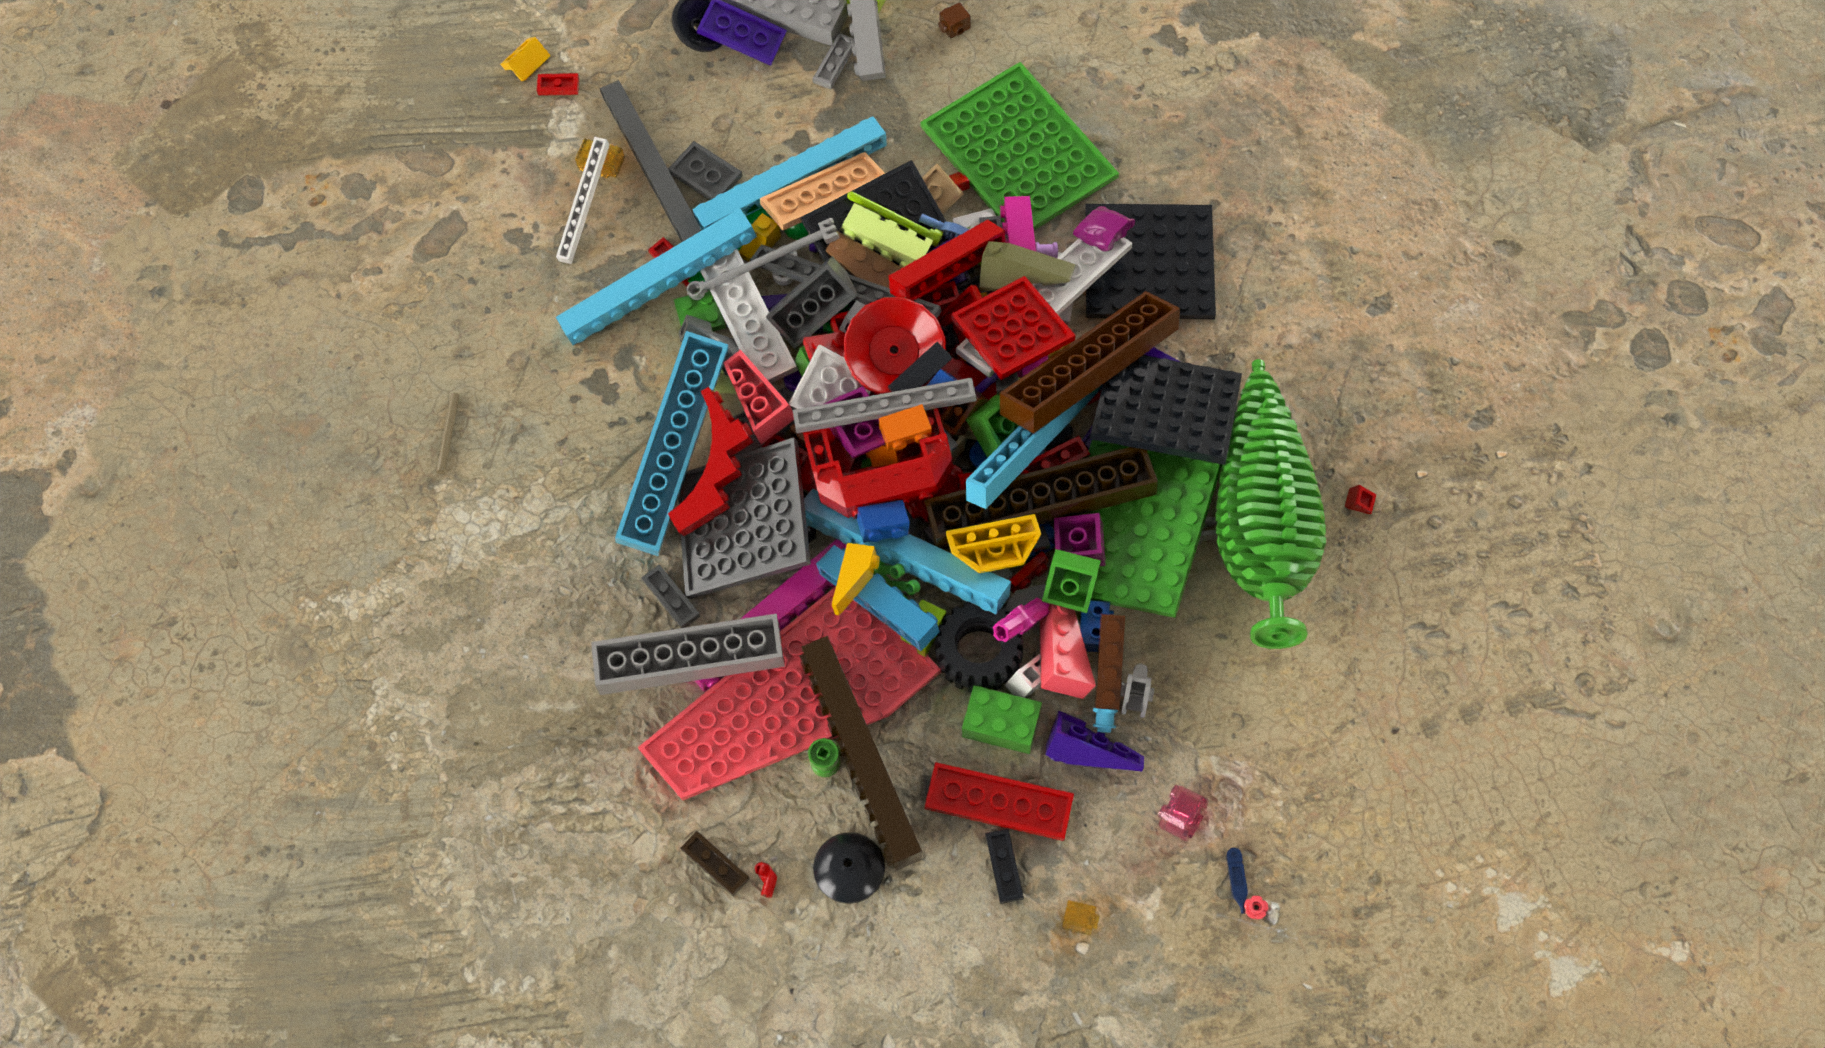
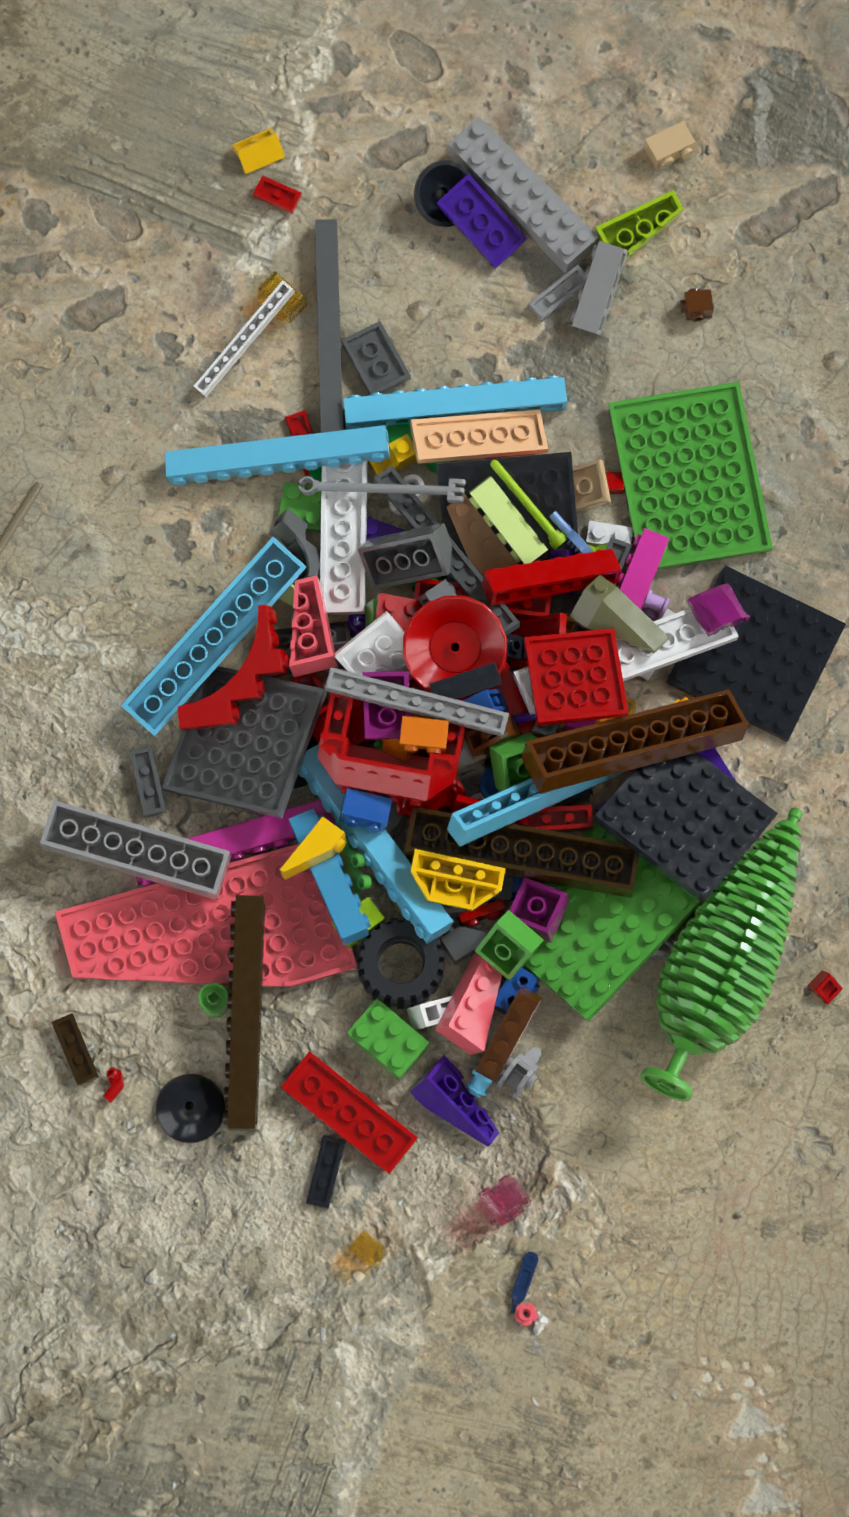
camera: 20 degrees right, 10 degrees up
(1020, 620) = (445, 960): dark pink piece -> none

